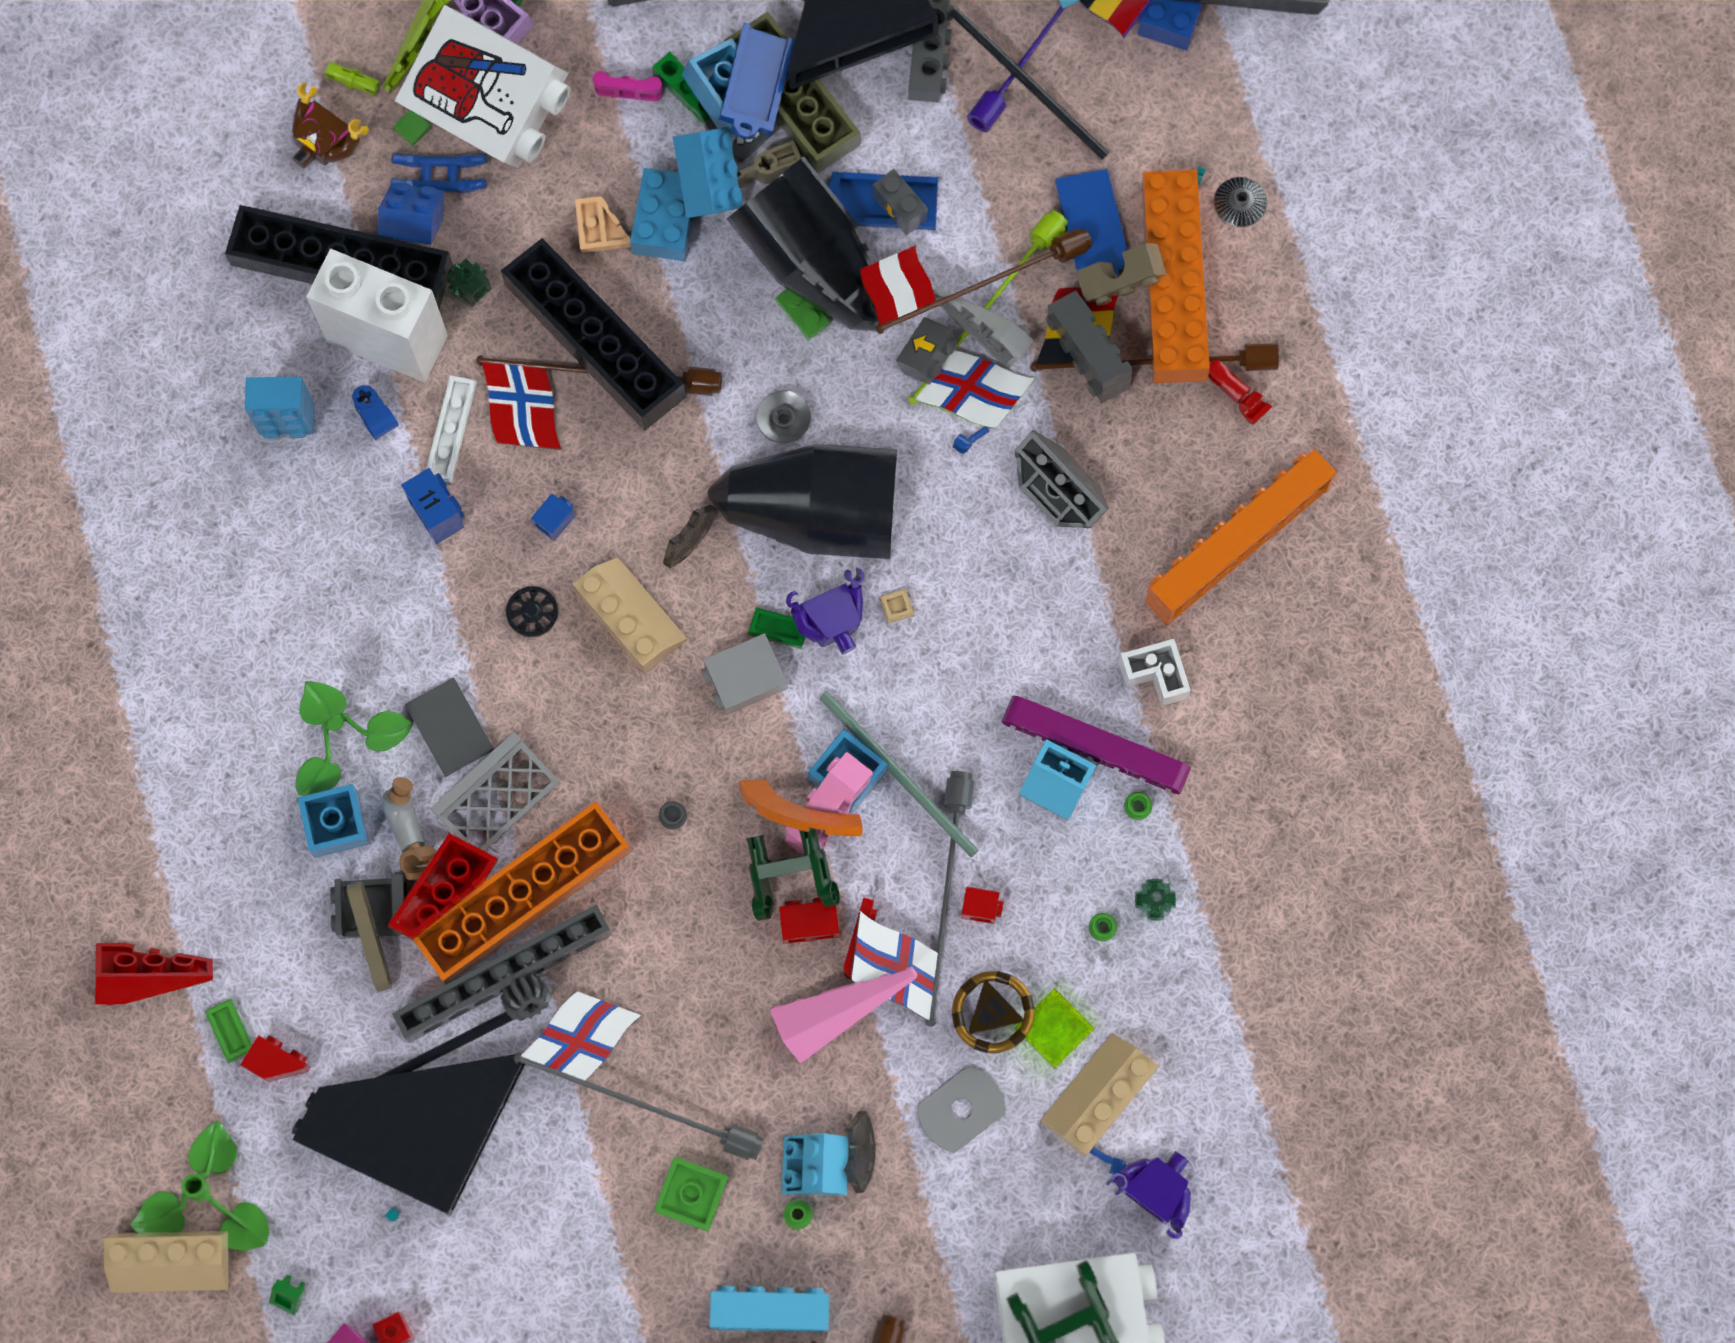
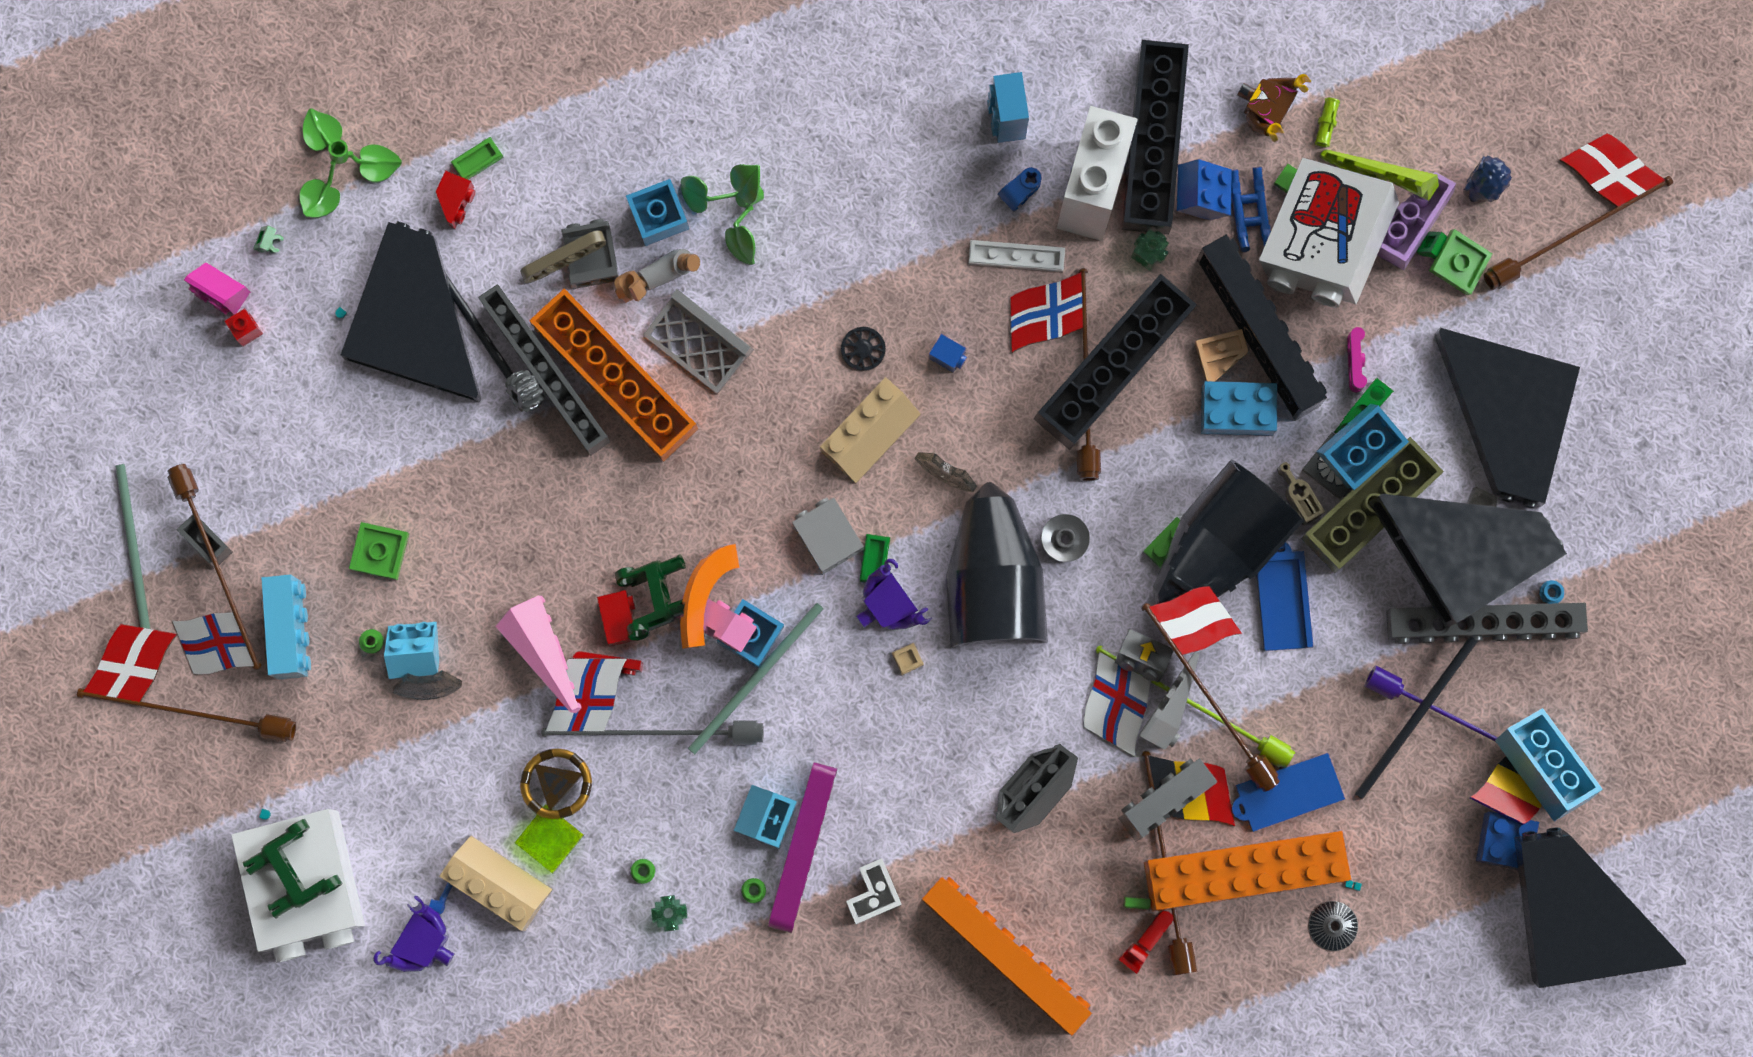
camera: 85 degrees right, 5 degrees up
(132, 976) = (513, 78): red wedge -> none
(166, 1261) = (285, 140): tan slope -> none
(430, 501) = (941, 250): blue brick -> none
(445, 882) = (613, 311): red wedge -> none
(449, 727) = (753, 295): dark grey tile -> none
(576, 175) = (1261, 327): none -> black brick
(582, 1040) = (494, 442): flag -> none
(672, 815) = (698, 492): dark grey plate -> none
(707, 172) = (1278, 438): dark azure brick -> none
(756, 82) = (1369, 468): piece -> none
(900, 202) = (1280, 613): dark grey brick -> none
(963, 444) = (1064, 700): blue hand -> none
(981, 905) = (648, 763): red brick -> none
(986, 1109) = (494, 774): light grey piece -> none
(1142, 268) = (1243, 835): dark tan arch -> none
(1196, 395) = (1136, 903): none -> bright green tile

